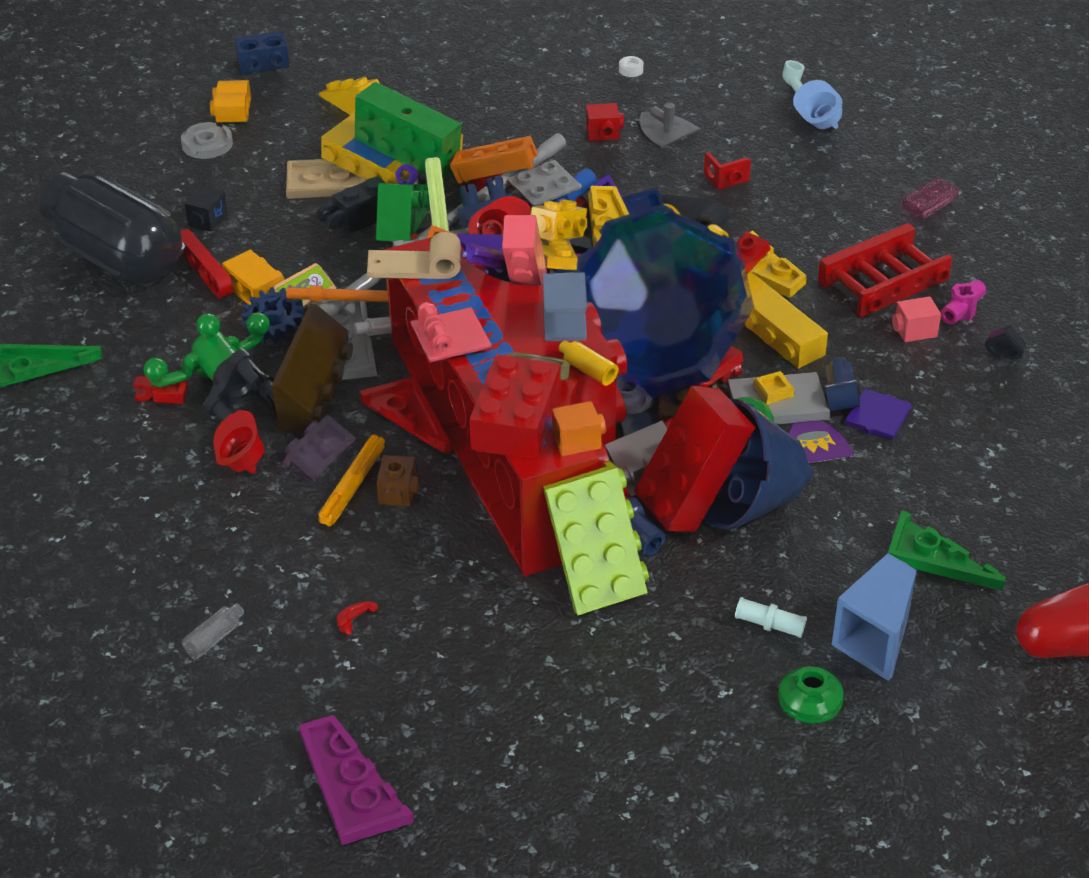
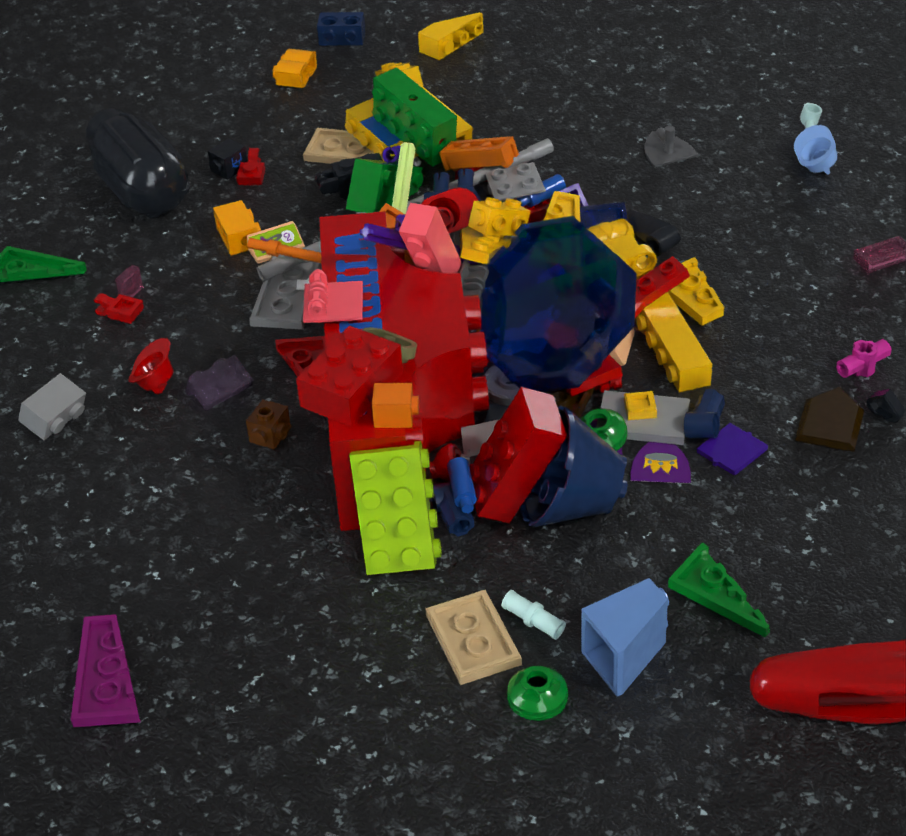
camera: 20 degrees right, 0 degrees up
(146, 509) = (52, 407): none -> light grey brick
(165, 352) = (129, 282): none -> clear pink tile
(206, 140) = (260, 99): light grey tile -> none
(206, 266) = (203, 206): red beam -> none
(212, 630) = (58, 521): clear cylinder -> none
(224, 362) = (169, 296): wheel -> none
(236, 218) = (252, 171): none -> red plate
(277, 309) = (235, 261): dark blue gear -> none
(310, 370) = (238, 312): dark brown slope -> none
(345, 616) = (176, 531): red piece -> none
(351, 480) = (233, 416): light orange axle -> none
(381, 45) = (449, 35): none -> yellow slope
(440, 262) = (335, 233): tan door -> none
(564, 306) = (442, 292): sand blue piece -> none
(589, 362) = (438, 348): yellow cylinder -> none
(603, 121) = (609, 134): red brick -> none
(631, 66) = (662, 87): white tile -> none
(644, 501) = (462, 484): none -> blue cylinder
(718, 653) = (473, 637): none -> tan tile
(728, 173) = (701, 200): red bracket -> none
(880, 250) = (799, 297): red fence -> none
(916, 319) = (809, 366): coral brick -> none
(958, 368) = (831, 420): none -> dark brown tile

